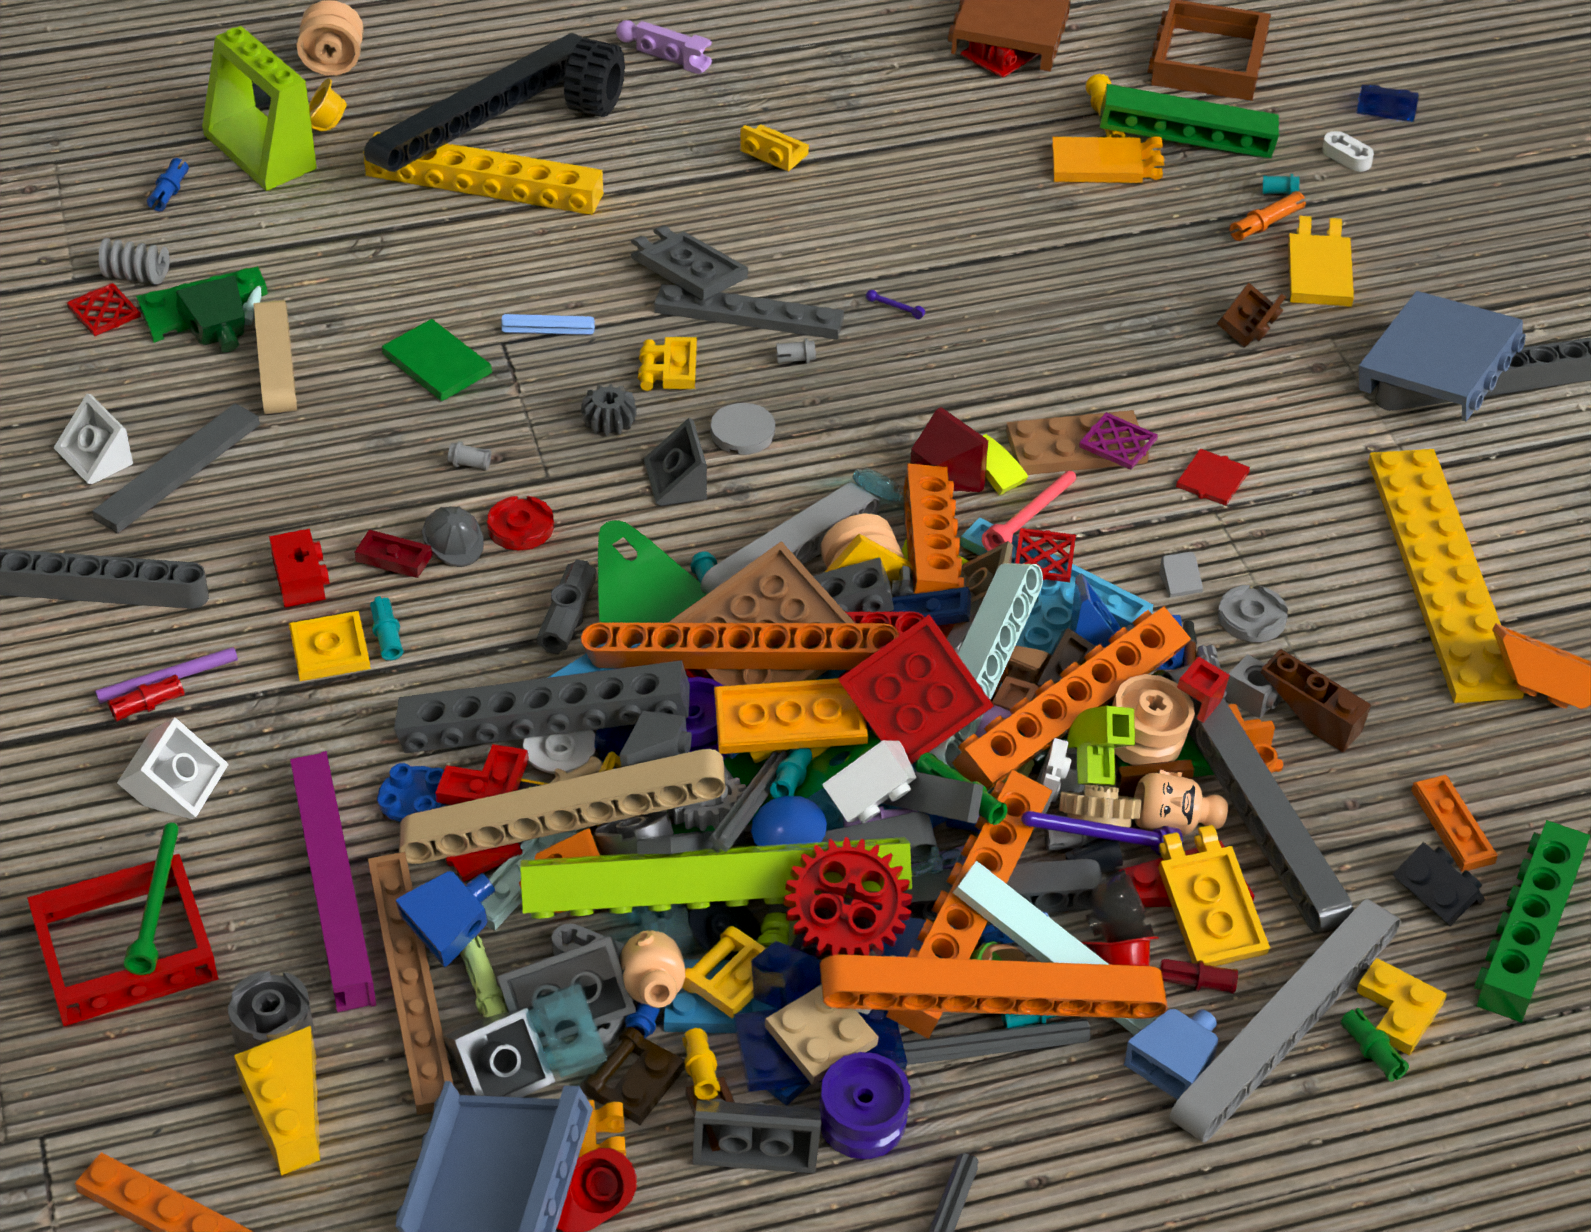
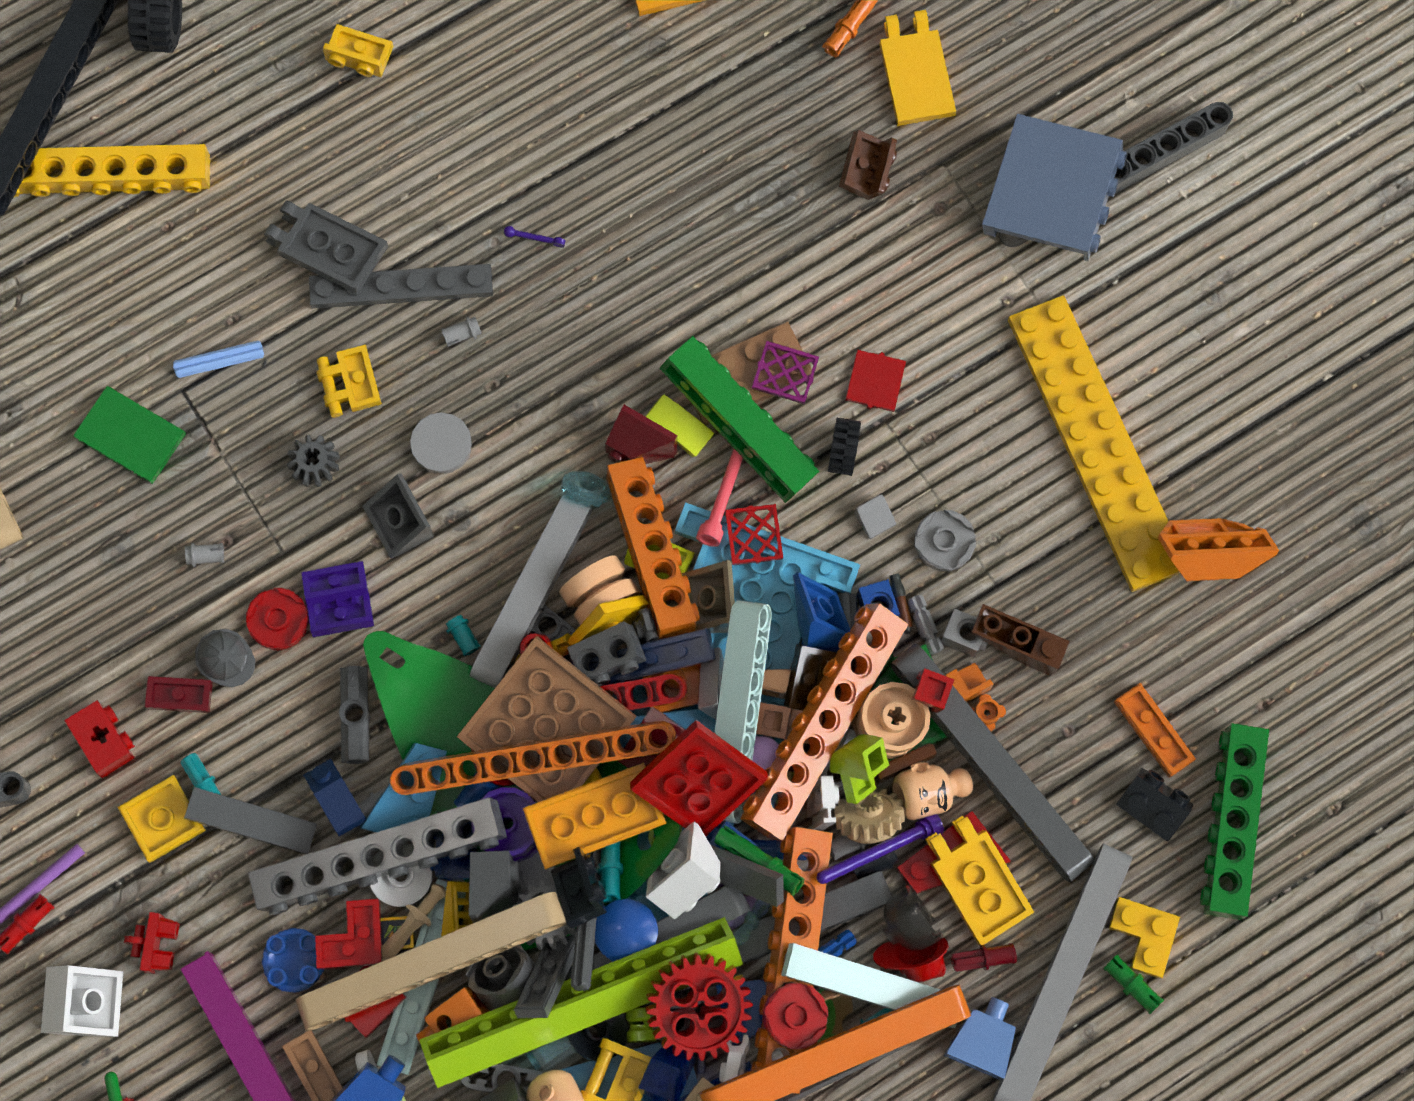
camera: 20 degrees left, 30 degrees up
(266, 741) = (152, 957): none -> red hips
(412, 656) = (250, 821): none -> dark grey tile
(516, 653) = (334, 797): none -> dark blue slope
(582, 515) = (337, 599): none -> dark purple slope
(751, 767) = (579, 890): none -> black bracket
(957, 932) = (795, 1016): none -> red tile
(1058, 459) = (739, 419): none -> green brick
(1163, 504) = (844, 446): none -> black tyre

